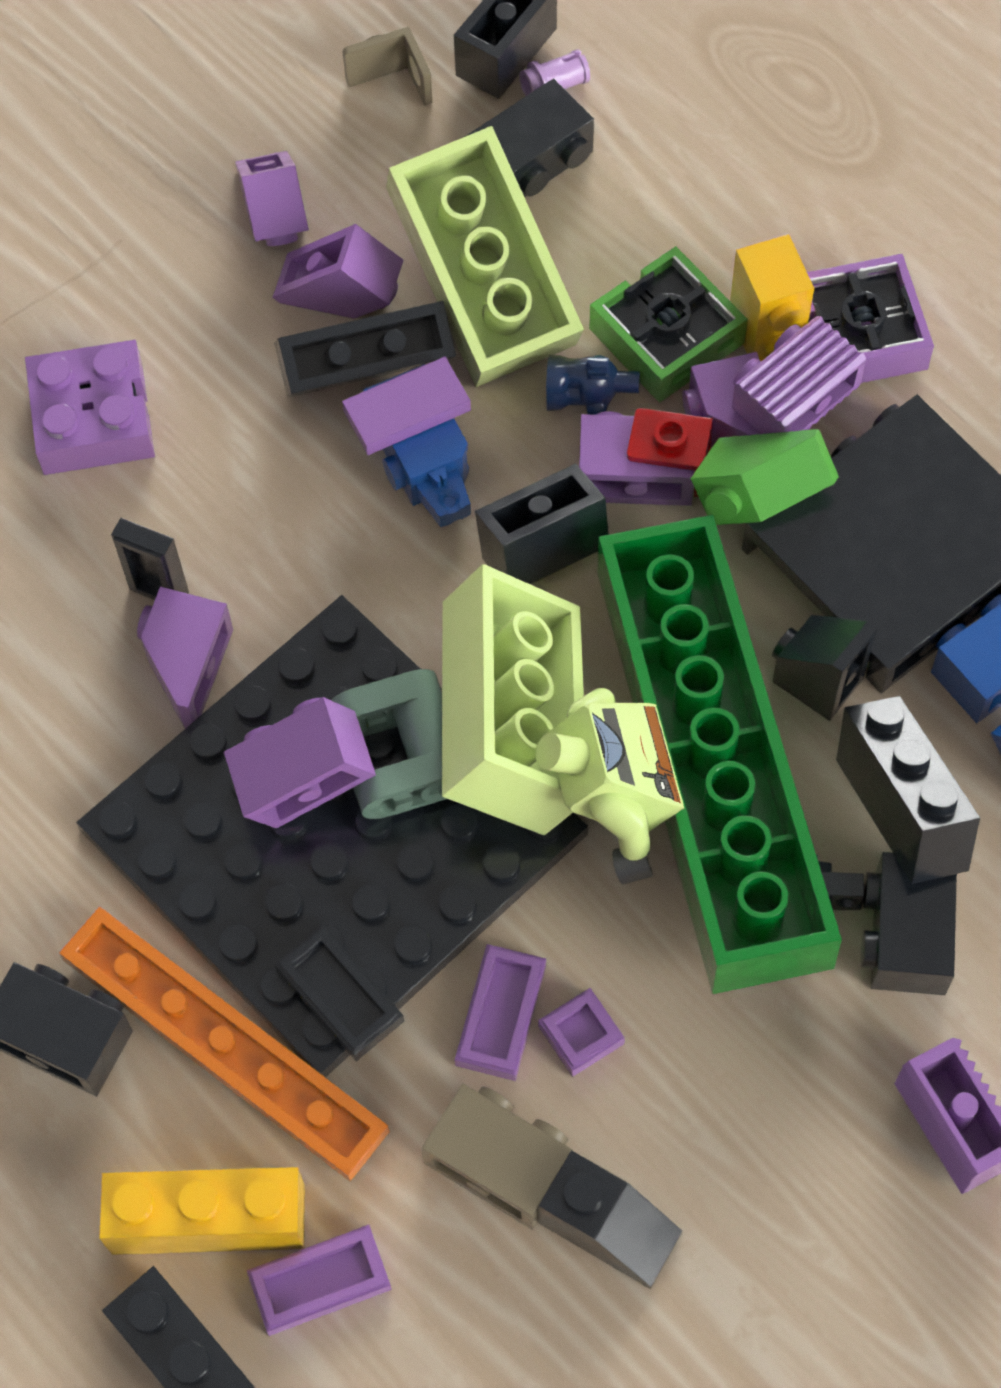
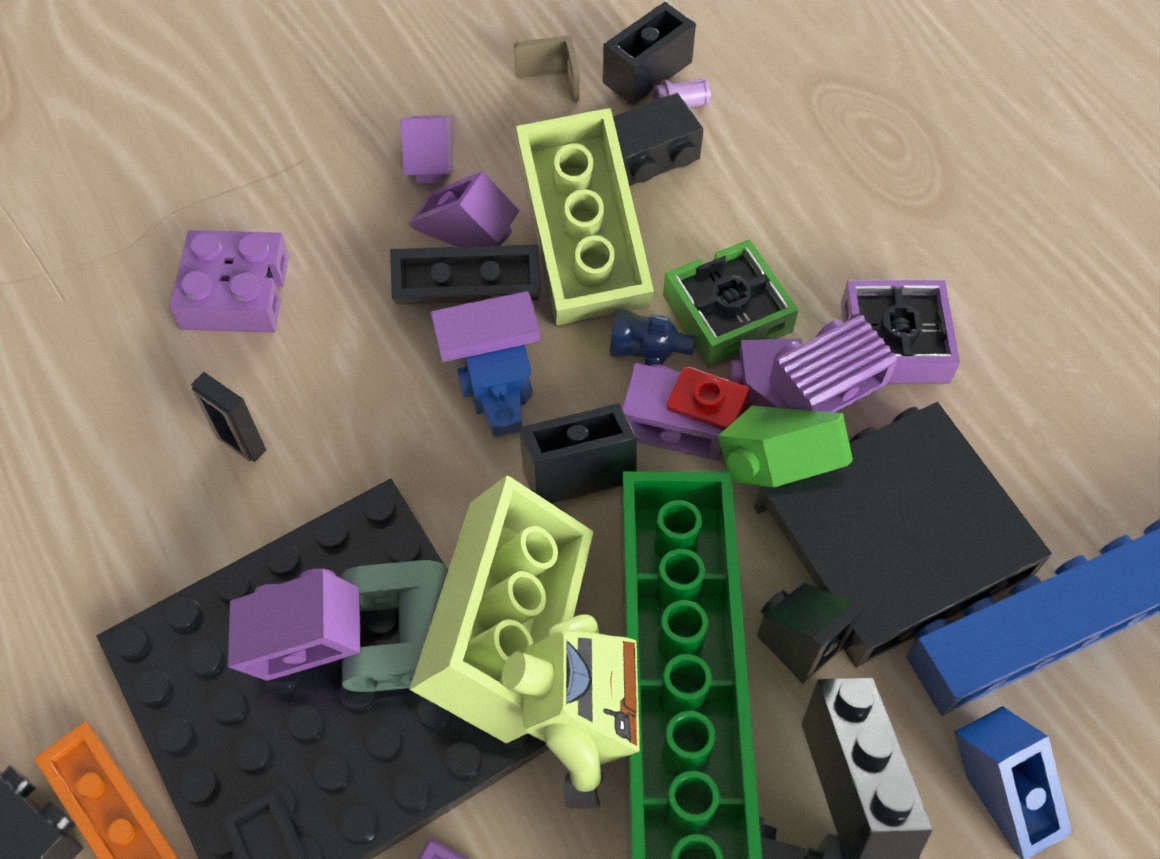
camera: 10 degrees right, 5 degrees down
(185, 647) = (240, 499): medium lavender slope -> none
(770, 292) = (823, 287): yellow brick -> none

